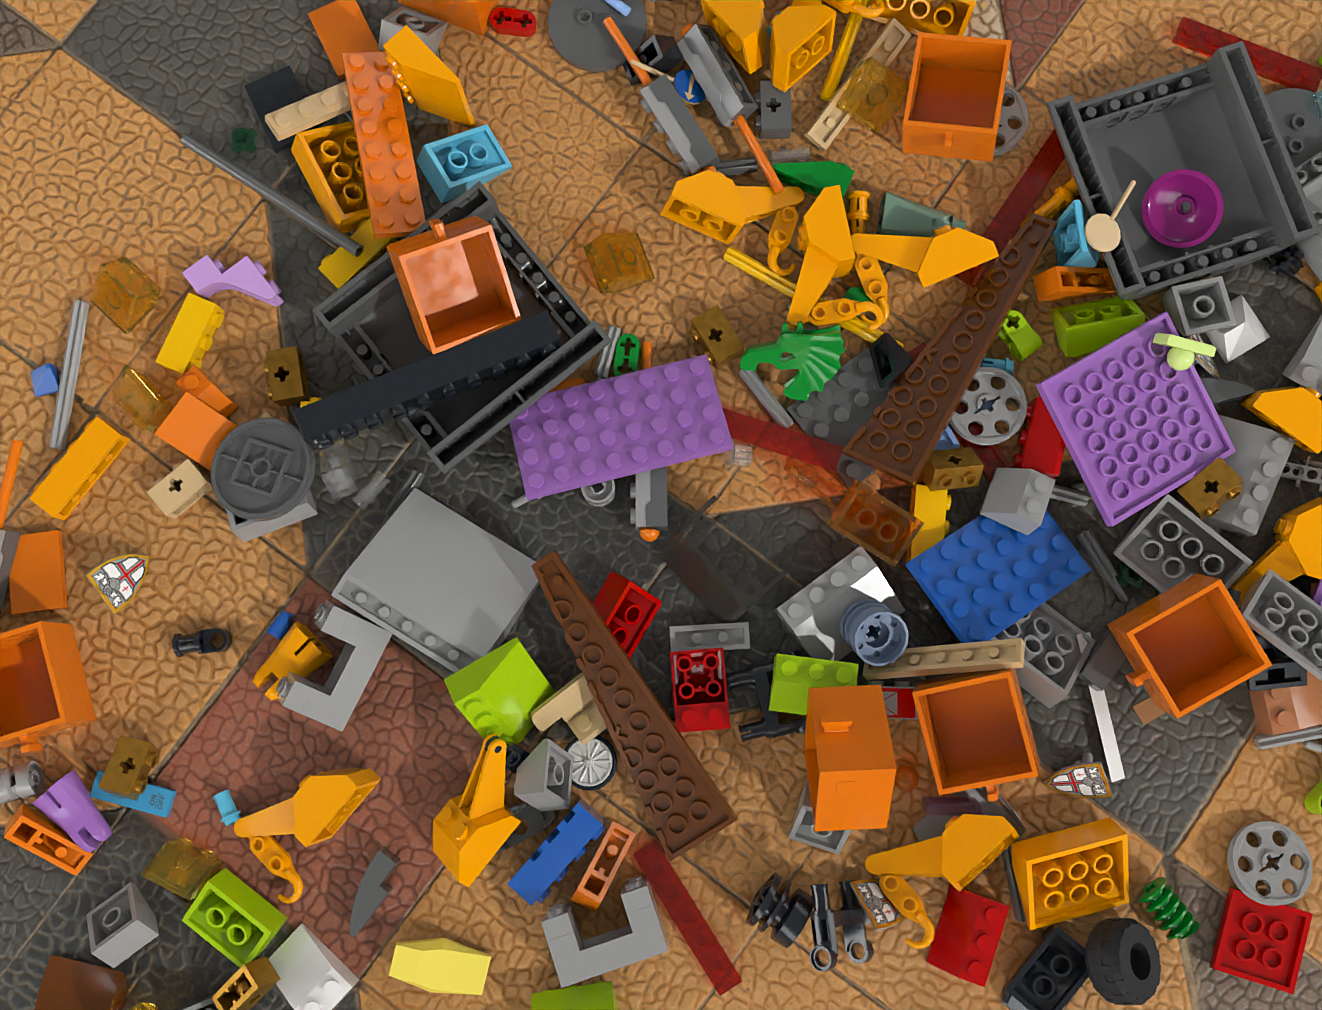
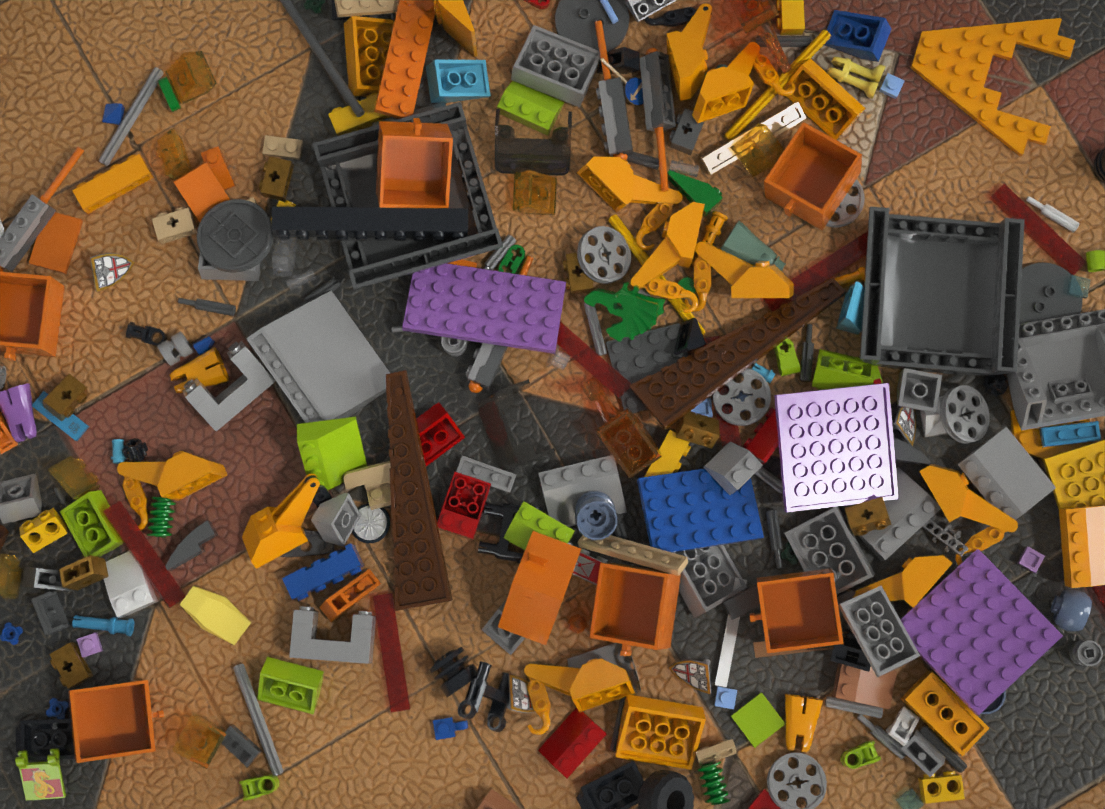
camera: 20 degrees right, 0 degrees up
(106, 326) = (169, 94): none -> green beam
(173, 956) = (46, 533): none -> yellow brick
(190, 335) = (223, 123): yellow brick -> none
(245, 276) = (277, 99): lavender arch -> none
(248, 635) = (182, 347): none -> light grey wheel
(248, 797) = (135, 450): none -> black gear
(269, 572) = (210, 306): none -> dark grey axle
(278, 334) = (282, 147): none -> tan plate
(315, 929) = (144, 554): none -> clear red plate
(318, 871) = (161, 517): none -> green piece
(567, 160) = (530, 107): none -> lime slope
(578, 95) = (556, 66): none -> light grey slope
(608, 211) = (526, 154): none -> clear smoke windscreen
(736, 311) = (599, 261): none -> light grey wedge
(799, 985) = (446, 727): none -> blue plate
(951, 805) = (597, 652): tile -> none
(1041, 323) = (807, 356): none -> dark grey axle
(1072, 283) = (836, 336): orange slope -> none
(1102, 230) = (866, 310): tan piece -> none
(1131, 792) = (725, 697): none -> light blue plate
(1159, 859) = (721, 750): none -> tan plate
(1164, 209) = (926, 320): magenta dish -> none
(1182, 350) = (885, 413): yellowish green tile -> none
(1183, 802) = (757, 719): none -> lime tile
(1239, 780) = (801, 720): none -> light orange piece
(1261, 29) = (1055, 215): none -> white axle
(1275, 320) = (961, 407): none -> light grey wedge

